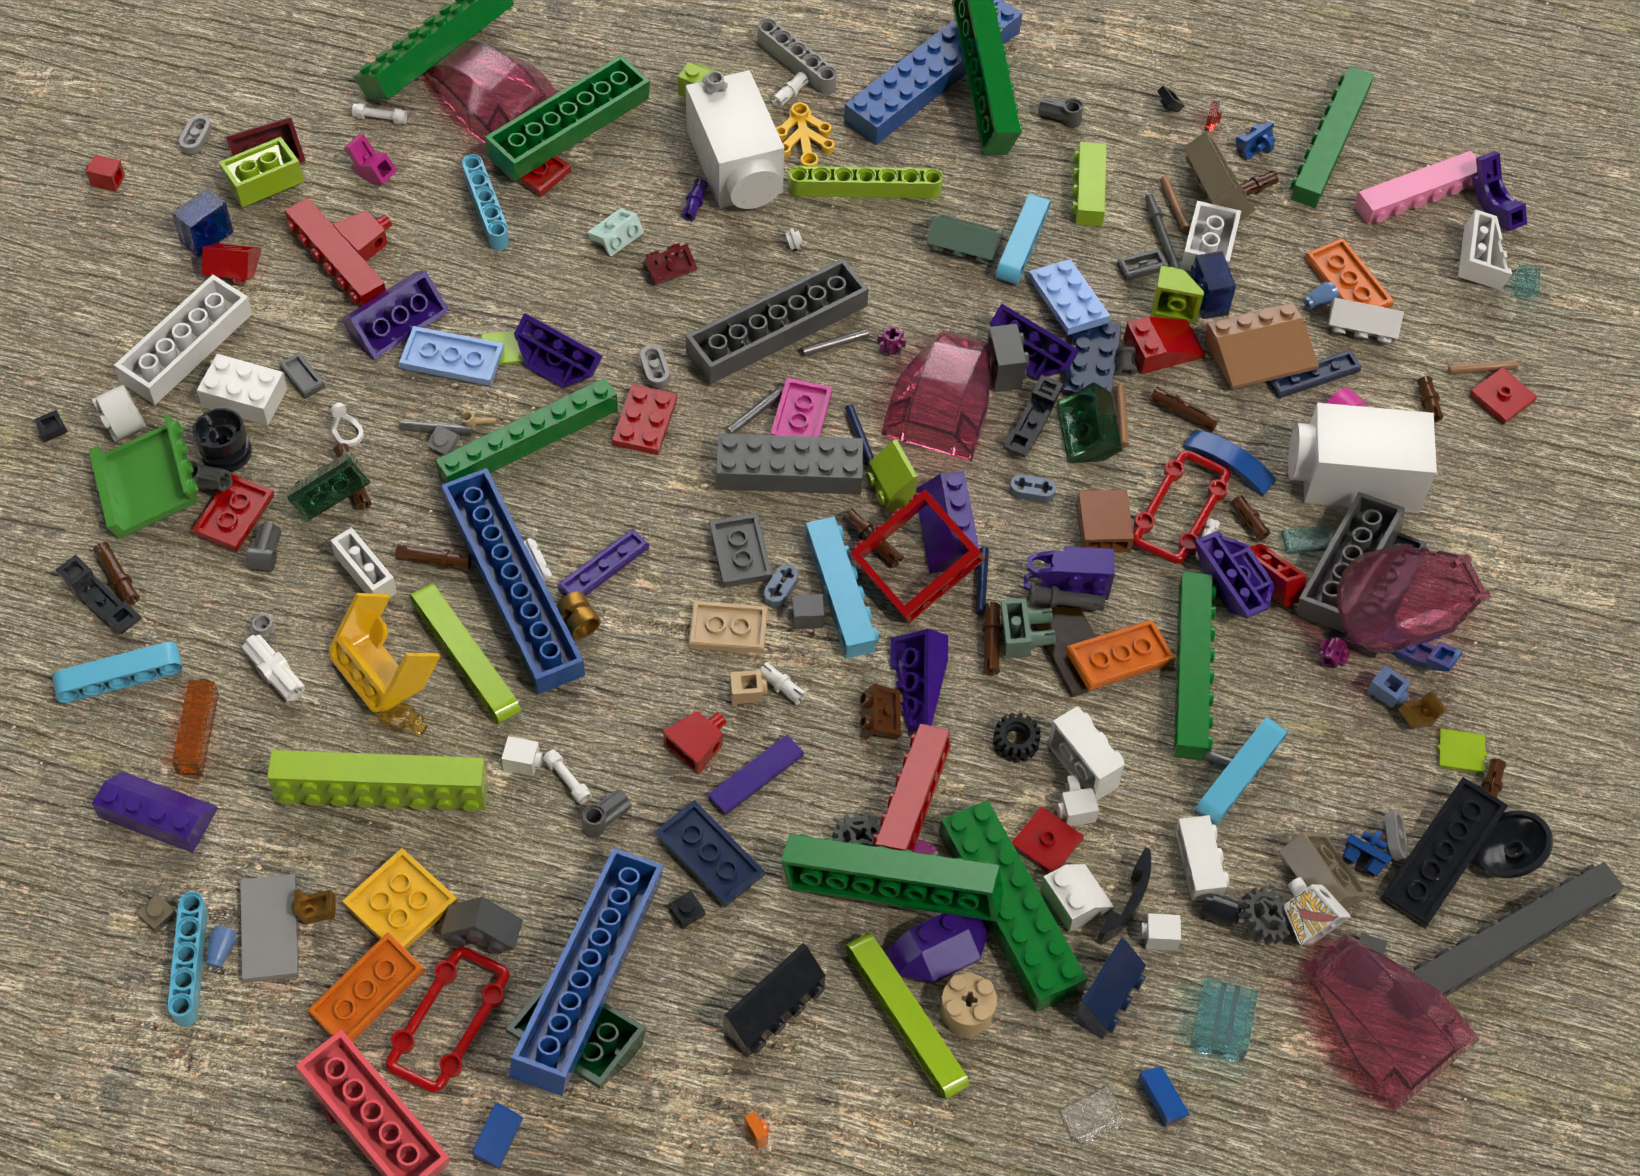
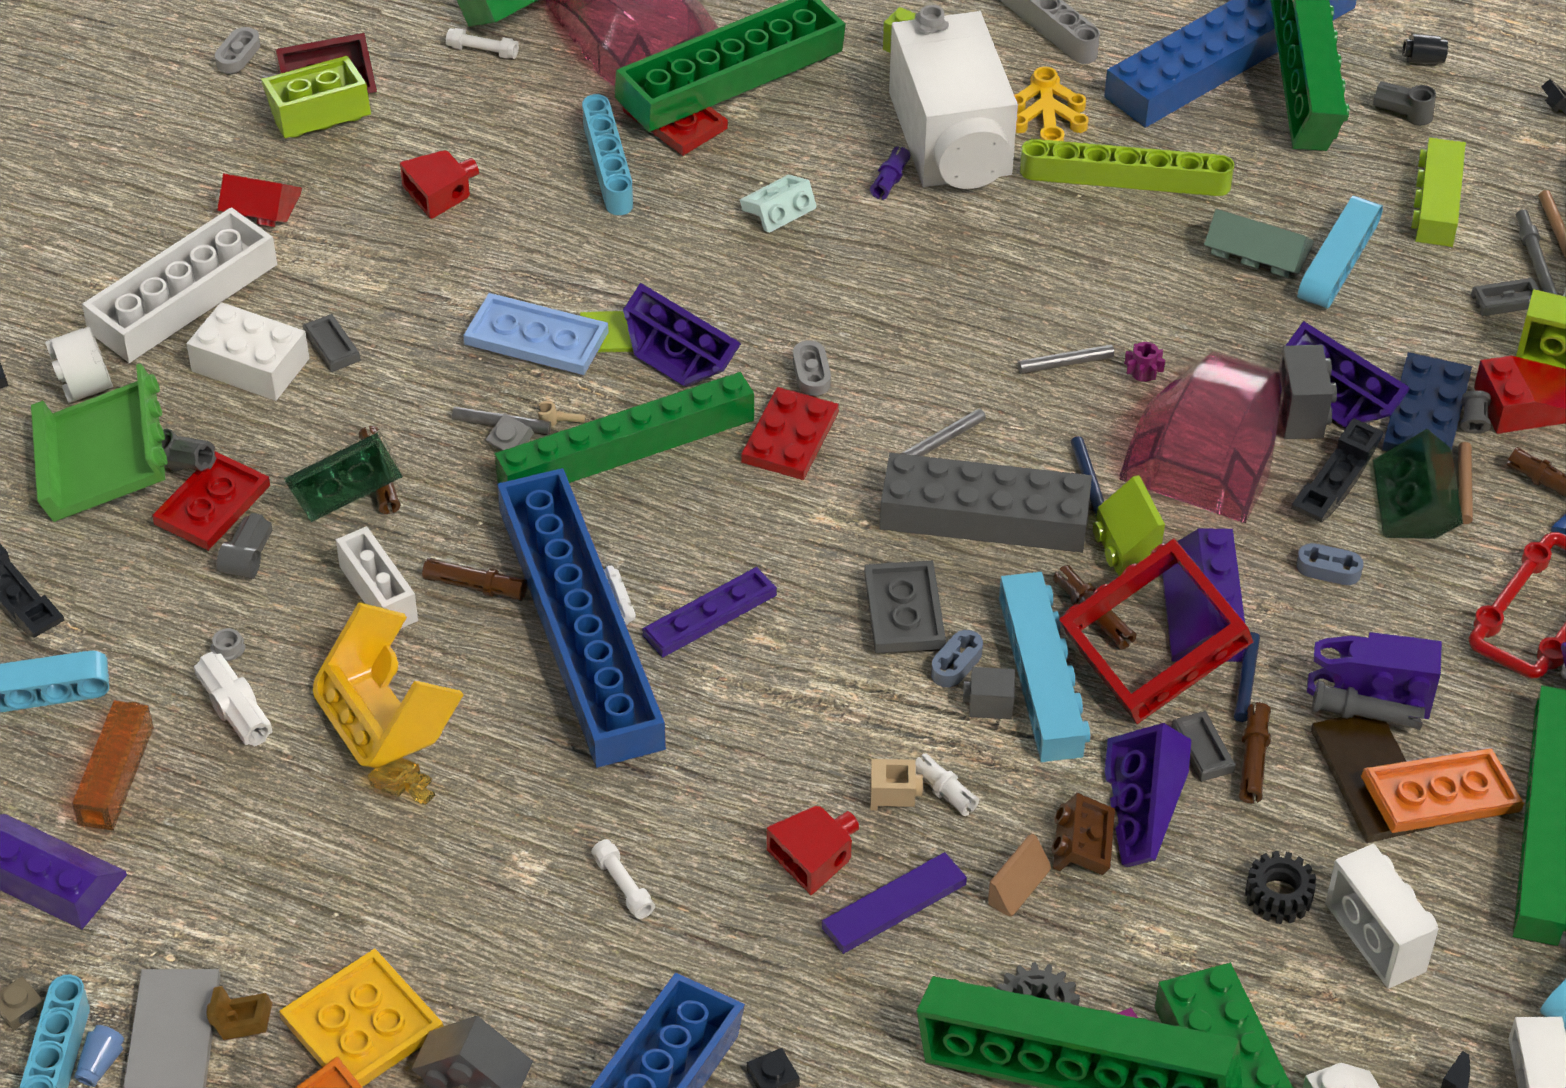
camera: 10 degrees right, 10 degrees down
(105, 173) = (113, 85): red brick -> none
(120, 581) = (44, 571): reddish brown pin -> none
(202, 221) = (229, 145): clear blue brick -> none
(222, 439) = (211, 406): black wheel -> none
(333, 252) = (398, 201): brick -> none
(339, 410) = (372, 386): white piece -> none
(367, 163) = (459, 99): dark pink brick -> none
(378, 780) = (355, 853): lime brick -> none
(392, 314) = (463, 277): dark purple slope -> none
(465, 653) = (501, 705): lime beam -> none
(521, 756) = (561, 844): white brick -> none
(578, 615) = (666, 668): pearl gold wheel -> none
(605, 811) = (669, 931): dark grey piece -> none
(670, 264) = (847, 245): dark red bracket -> none
(709, 853) = (815, 1001): dark blue plate -> none
(728, 627) = (876, 705): tan tile -> none
(776, 321) = (986, 323): dark grey brick -> none
(789, 89) = (1033, 52): white pin -> none
(794, 239) = (1021, 228): white plate -> none
(802, 409) = (1011, 434): dark pink plate -> none
(839, 748) = (1018, 877): none -> medium nougat slope
(914, 788) = (1125, 934): brick -> none
(960, 640) = (1208, 751): none -> dark grey tile
(1016, 630) = (1291, 737): sand green brick -> none
(1047, 840) = (1315, 1031): red plate -> none
(1069, 297) = (1400, 326): light blue plate -> none
(1072, 65) = (1425, 49): none -> black brick
(1077, 805) = (1363, 986): white brick -> none
(1105, 519) = (1433, 608): dark orange brick -> none

